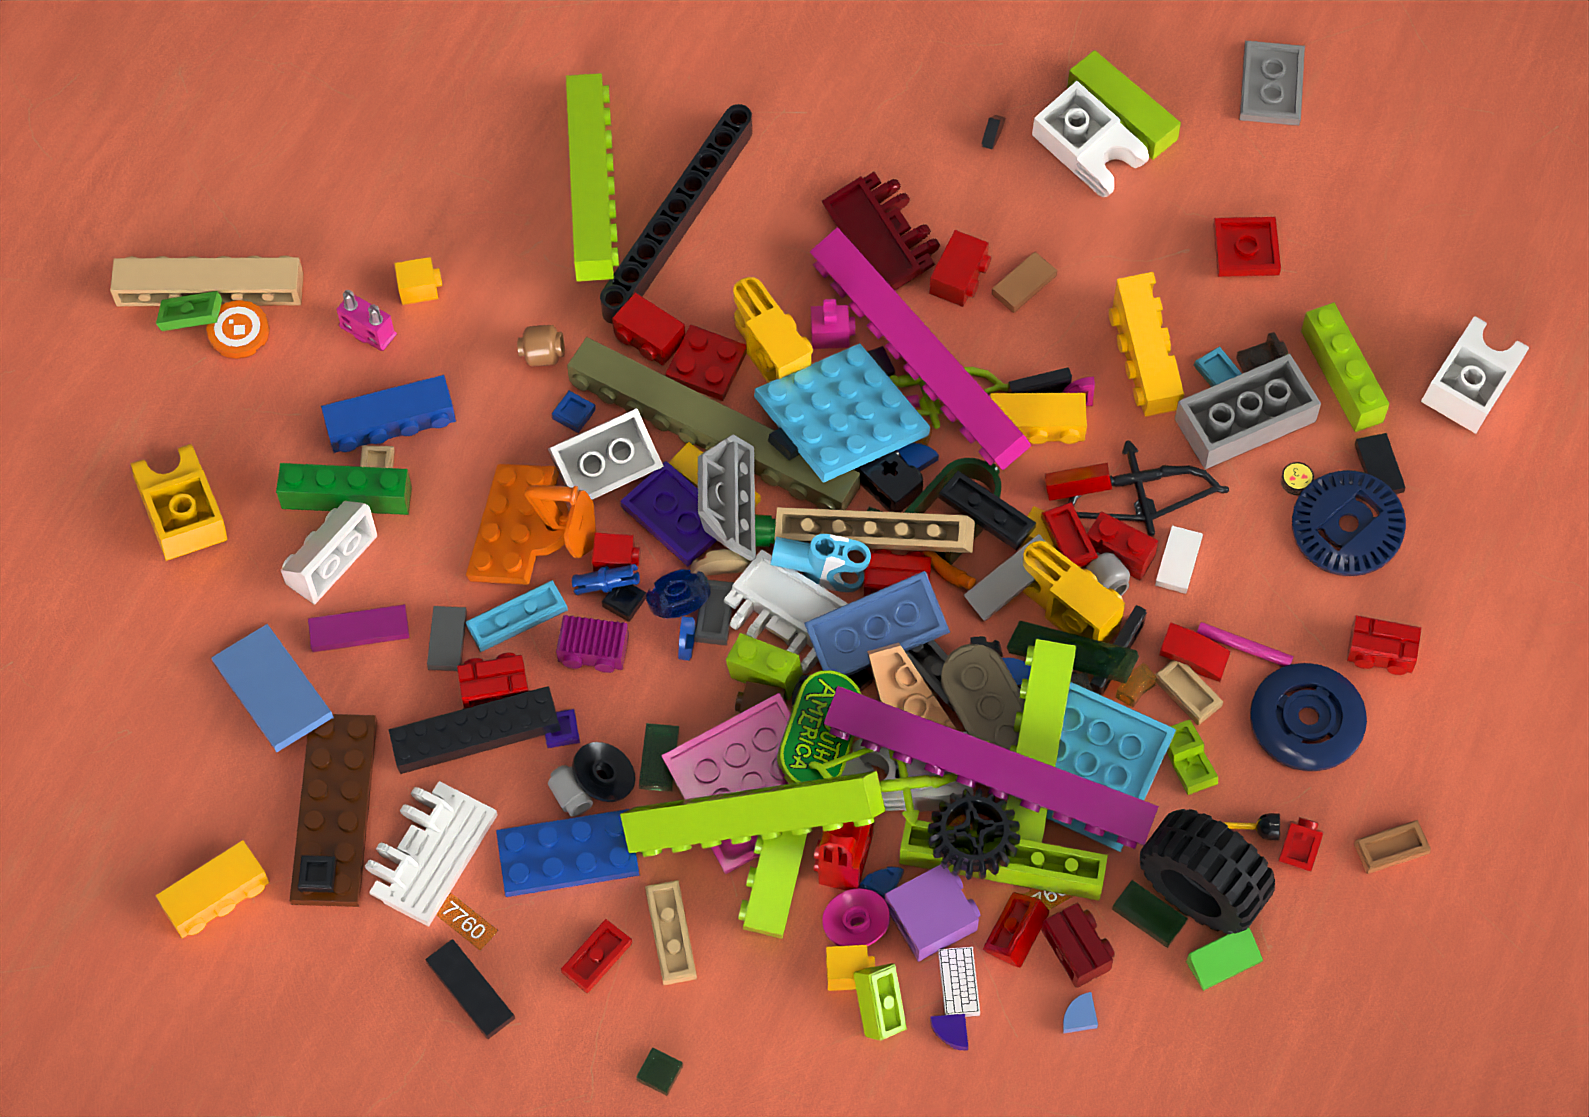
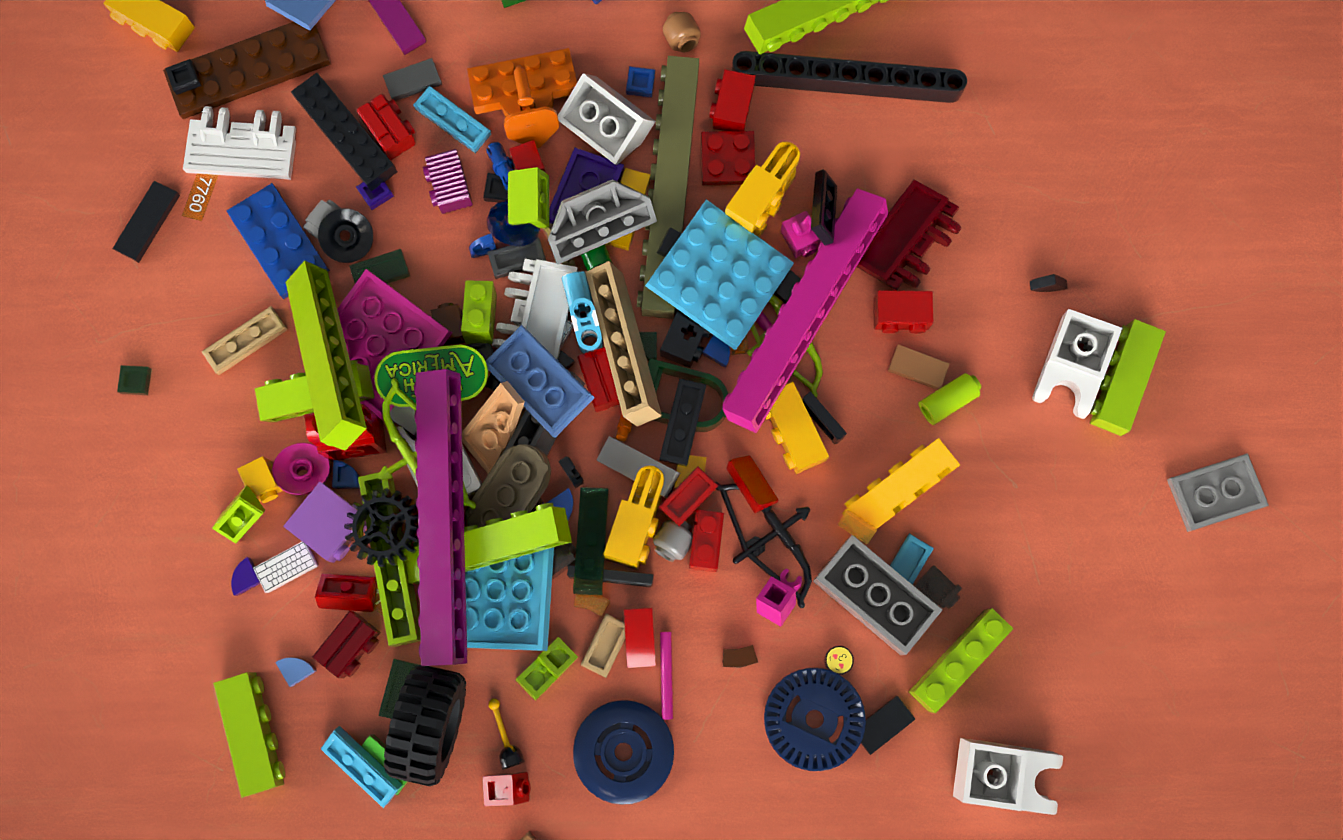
camera: 65 degrees right, 15 degrees up
(596, 956) = (202, 296): red plate -> none
(662, 561) = (528, 197): none -> lime panel
(816, 287) = (824, 207): none -> black tile
(1072, 266) = (950, 398): none -> lime brick
(1083, 385) = (835, 452): dark pink tile -> none
(1134, 1083) = (249, 733): none -> lime brick
(1172, 392) = (857, 526): none -> clear yellow piece
(1179, 559) = (720, 592): white tile -> none
(1212, 502) = (778, 598): none -> dark pink brick
(1218, 981) = (361, 766): none -> medium azure tile
(1247, 246) = (1040, 533): red plate -> none
(1255, 568) = (739, 657): none -> reddish brown piece
(1383, 645) = (712, 791): red brick -> none

